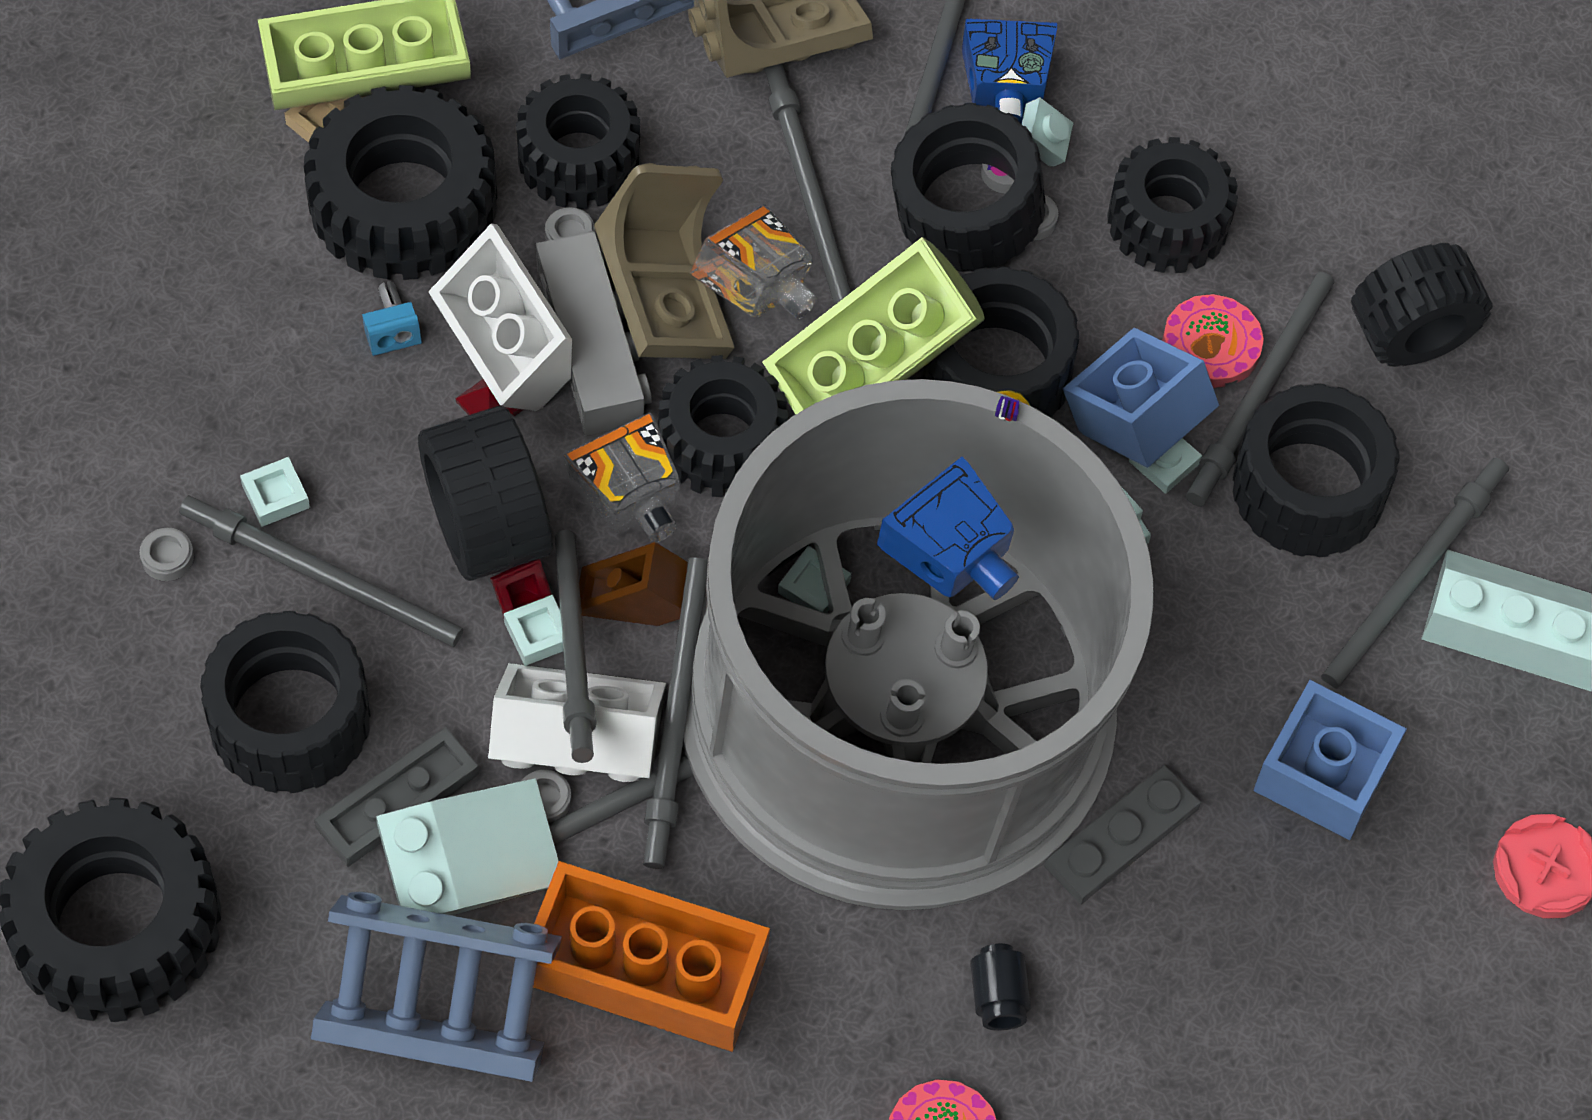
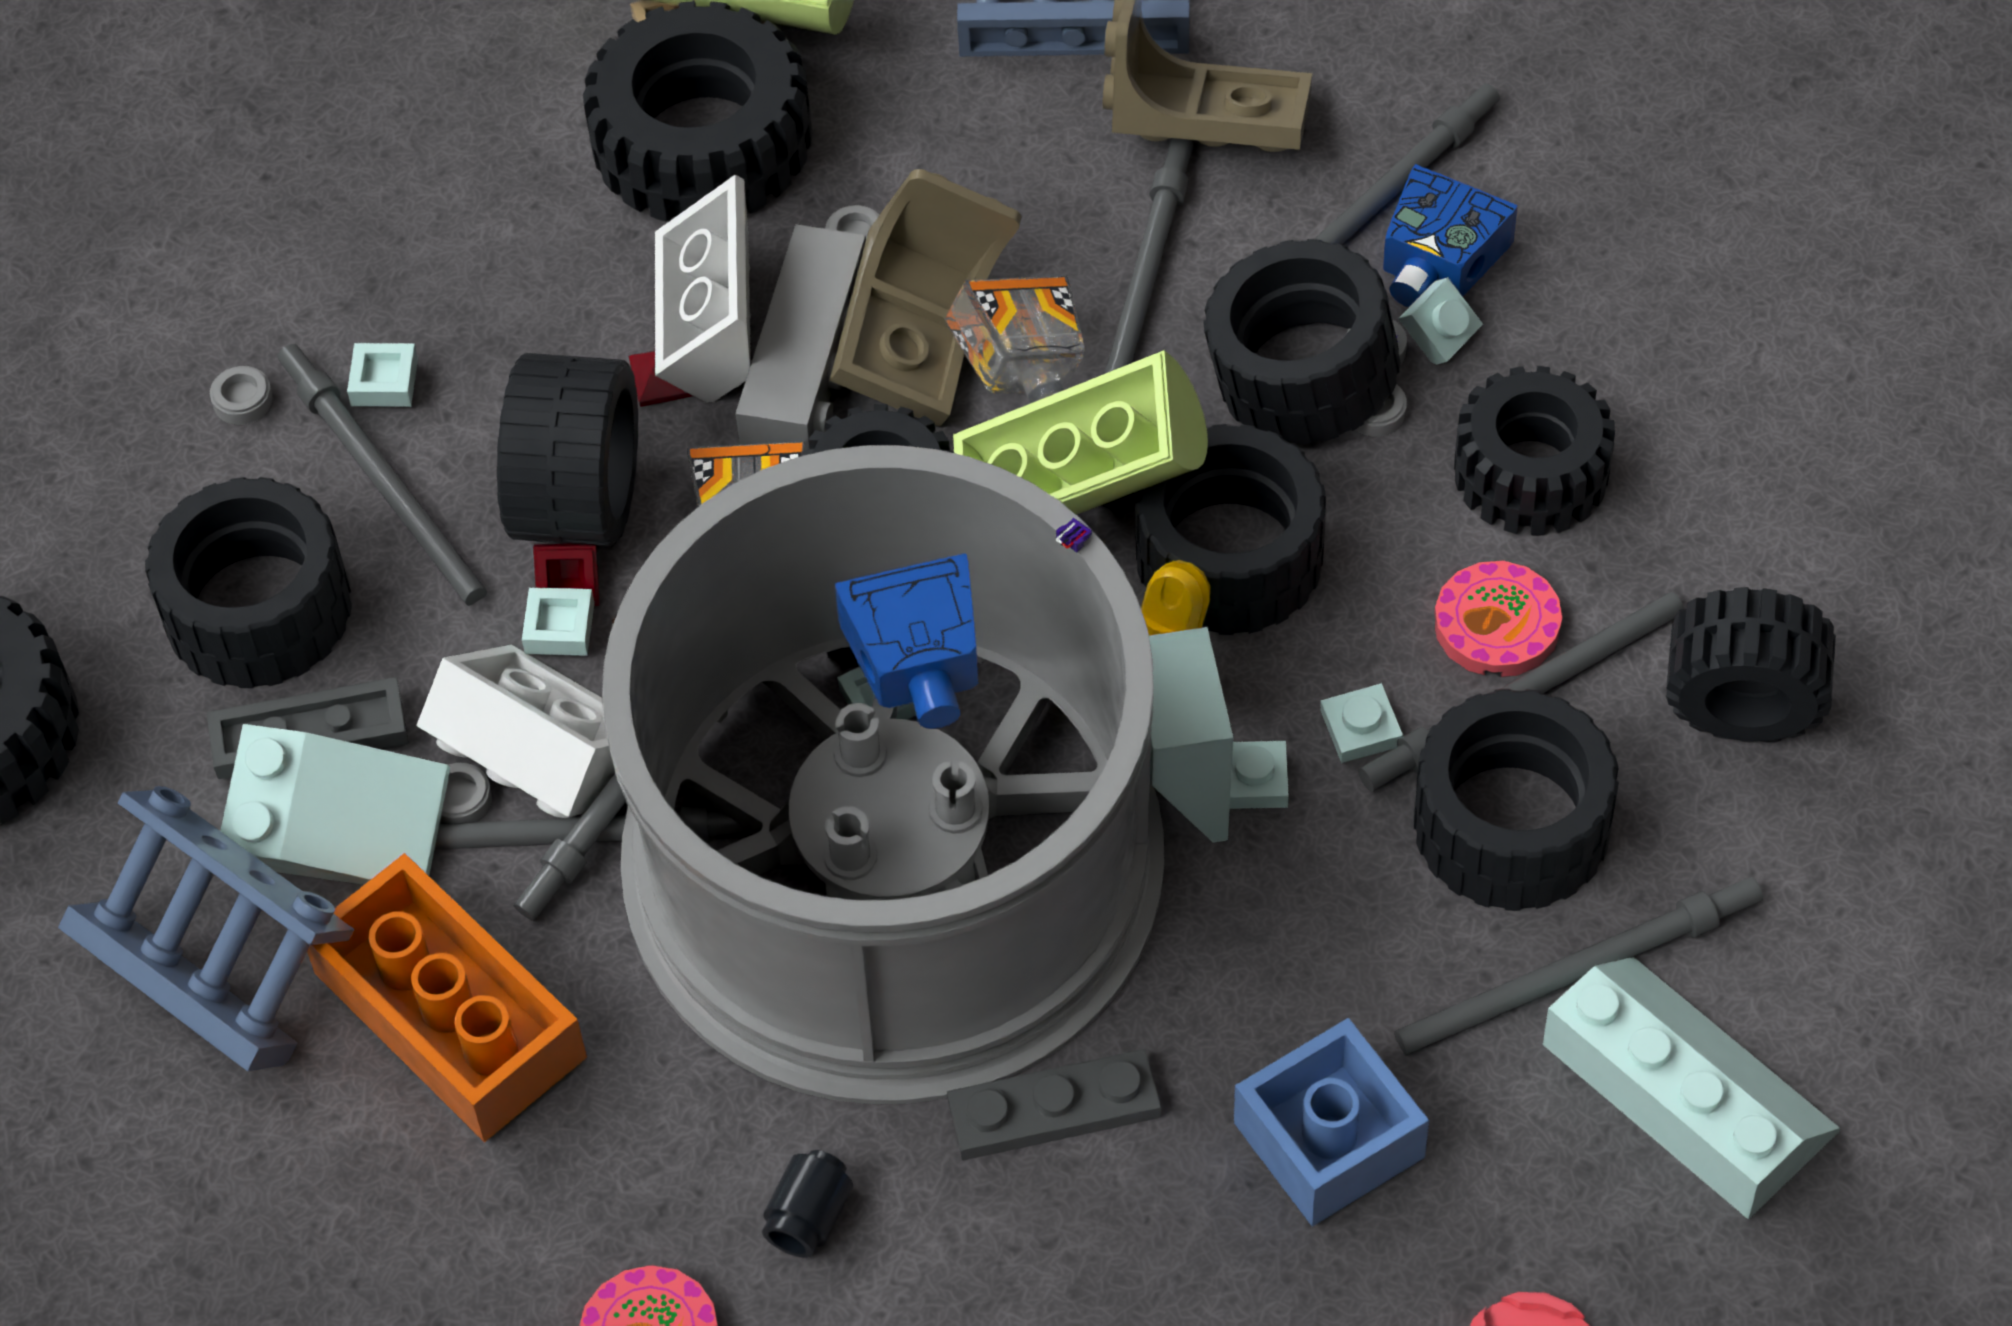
camera: 35 degrees right, 5 degrees down
(393, 326) = (608, 258): dark azure piece -> none
(577, 108) = (904, 105): black tyre -> none
(578, 711) = (513, 704): dark grey bar -> none
(1141, 397) = (1357, 638): medium blue brick -> none

